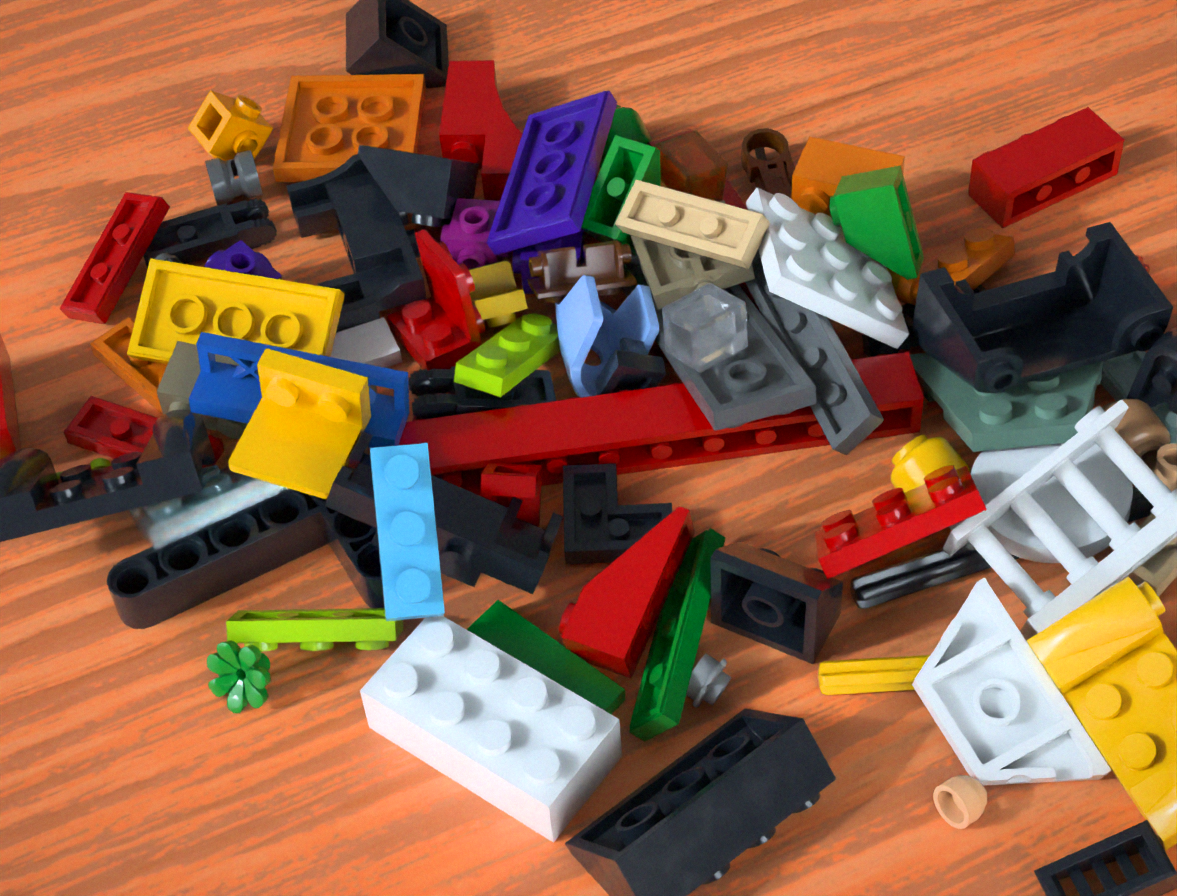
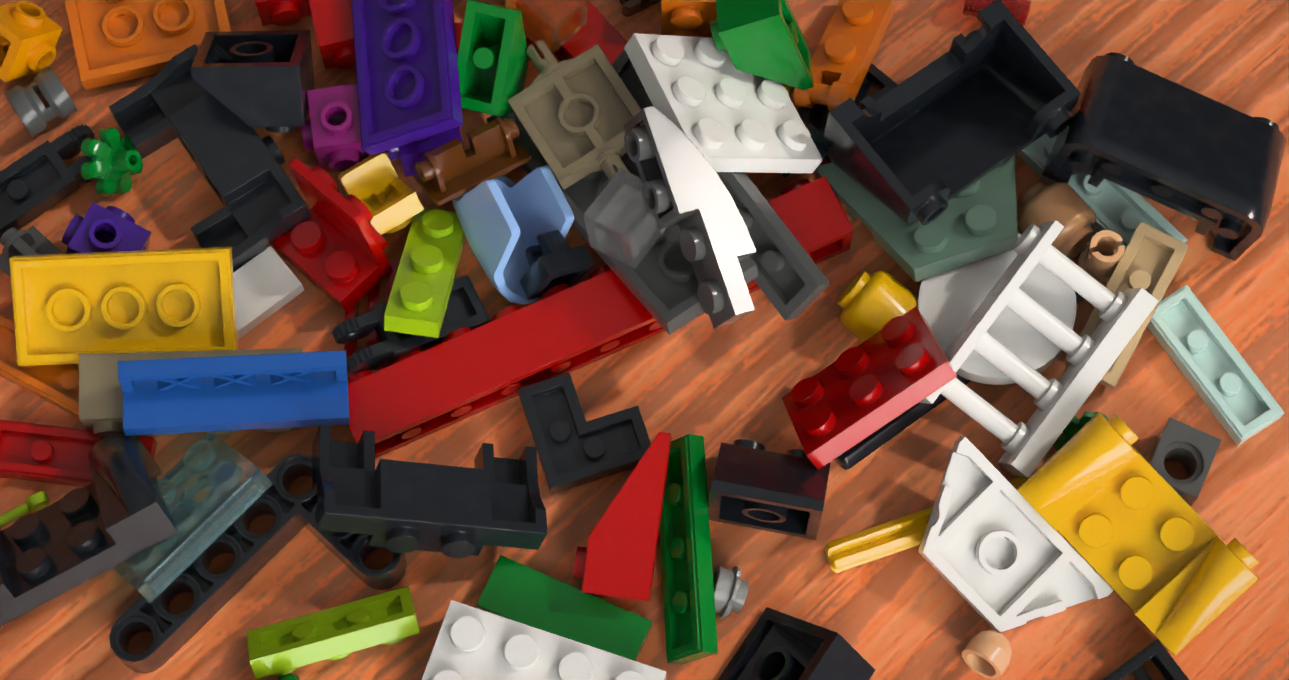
camera: 20 degrees left, 20 degrees up
(273, 229) = (111, 162): none -> green plant
(302, 424) = (258, 443): yellow bracket -> none
(407, 532) = (411, 541): medium azure plate -> none
(509, 480) = (478, 431): red panel -> none
(692, 223) = (574, 93): tan plate -> none
(769, 310) = (688, 193): none -> slope

